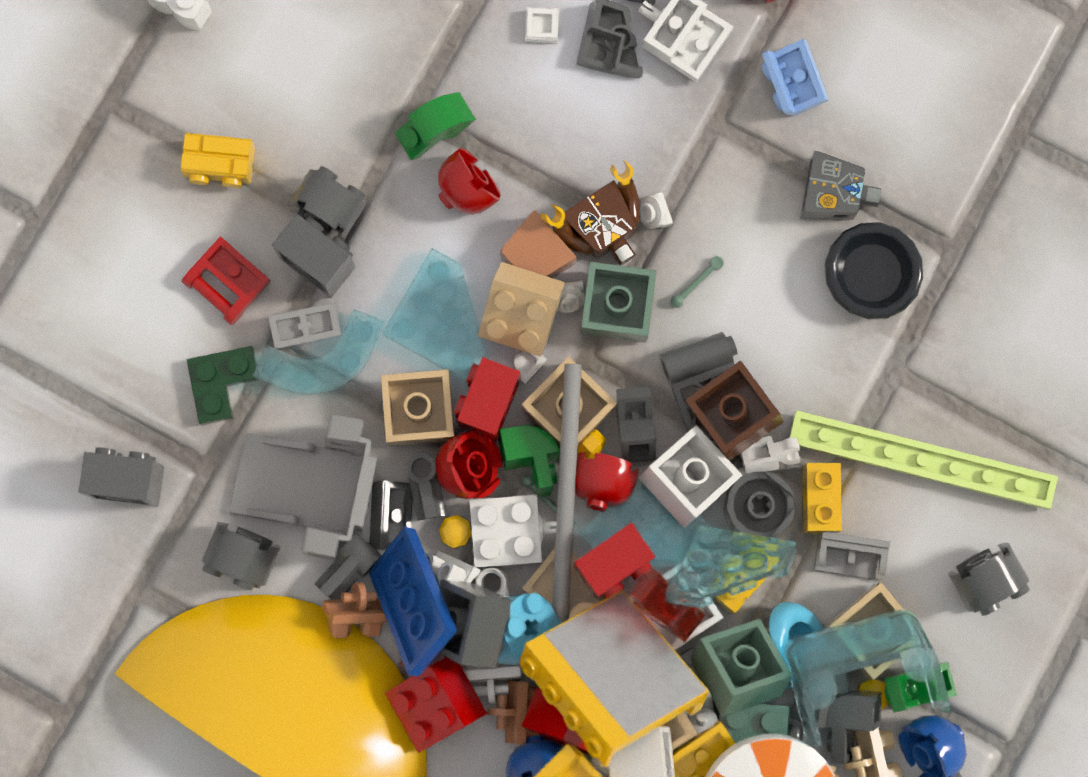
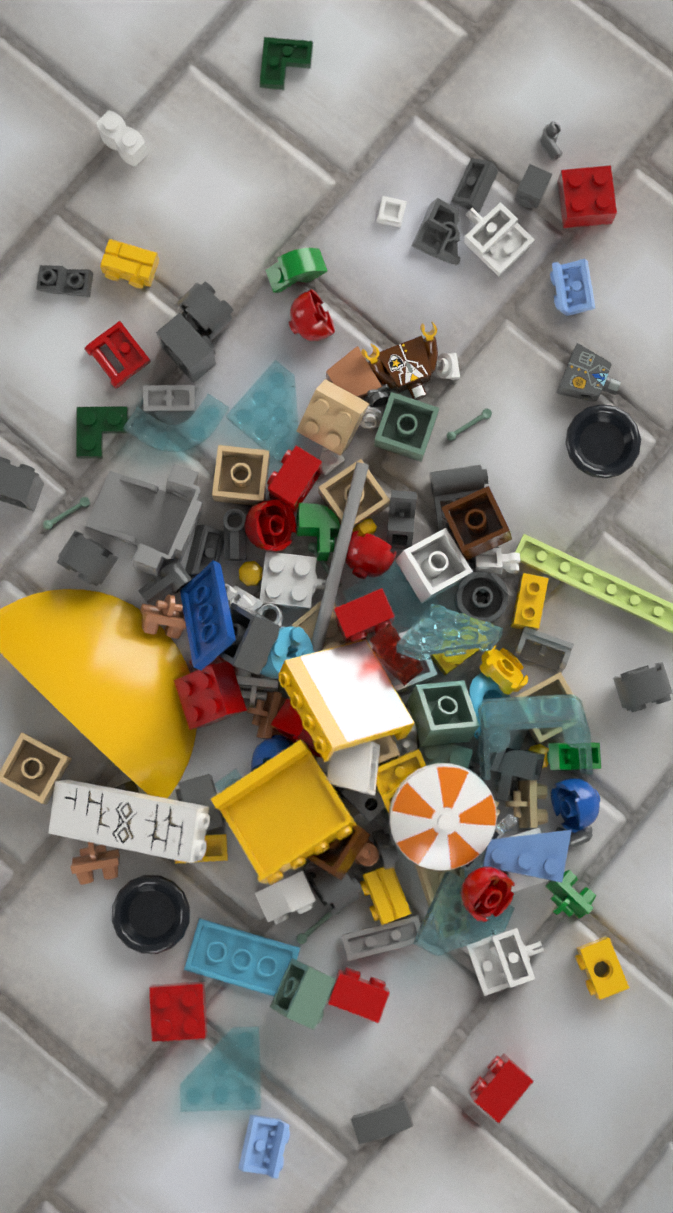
camera: 10 degrees right, 0 degrees up
(138, 198) = (64, 281): none -> dark grey slope
(220, 482) = (84, 502): none -> sand green hinge
(574, 270) = (378, 397): none -> dark grey plate
(807, 593) = (504, 670): none -> yellow plate

